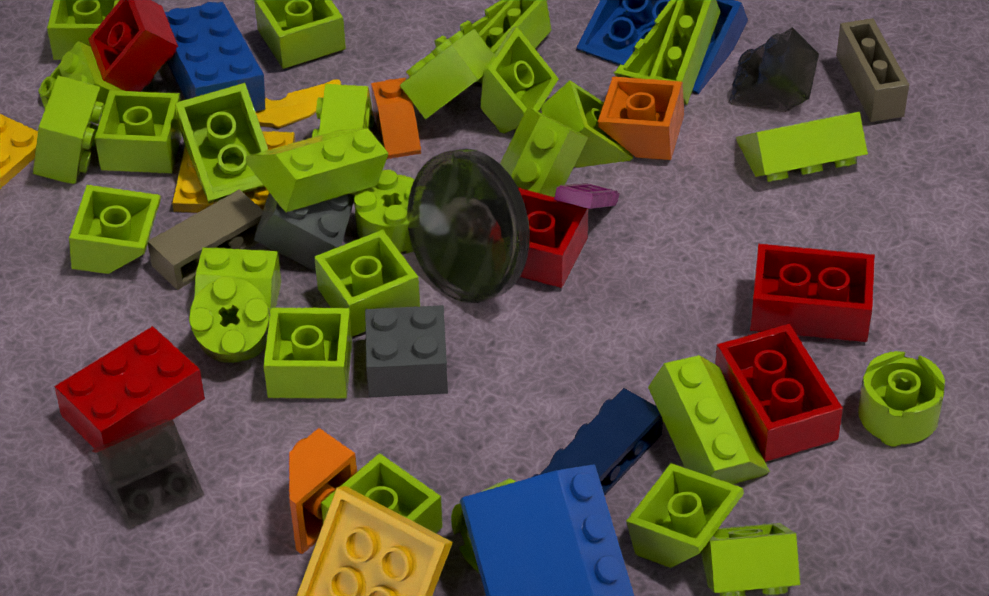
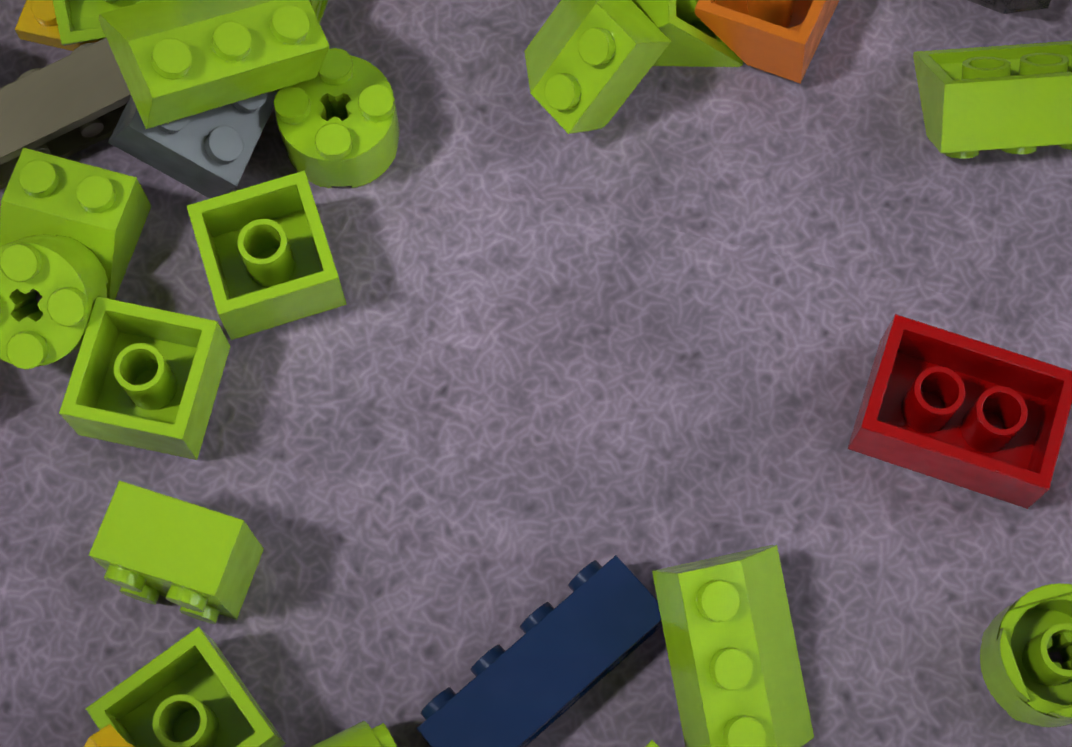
camera: 10 degrees right, 25 degrees up
(315, 471) = (81, 657): orange slope -> none
(358, 417) = (176, 551): none -> lime brick
(406, 351) = (299, 398): dark grey brick -> none
(468, 225) = (434, 202): clear smoke dish -> none
(556, 237) = (554, 215): red brick -> none
(587, 195) = (643, 156): magenta tile -> none
(780, 392) = (861, 604): red brick -> none

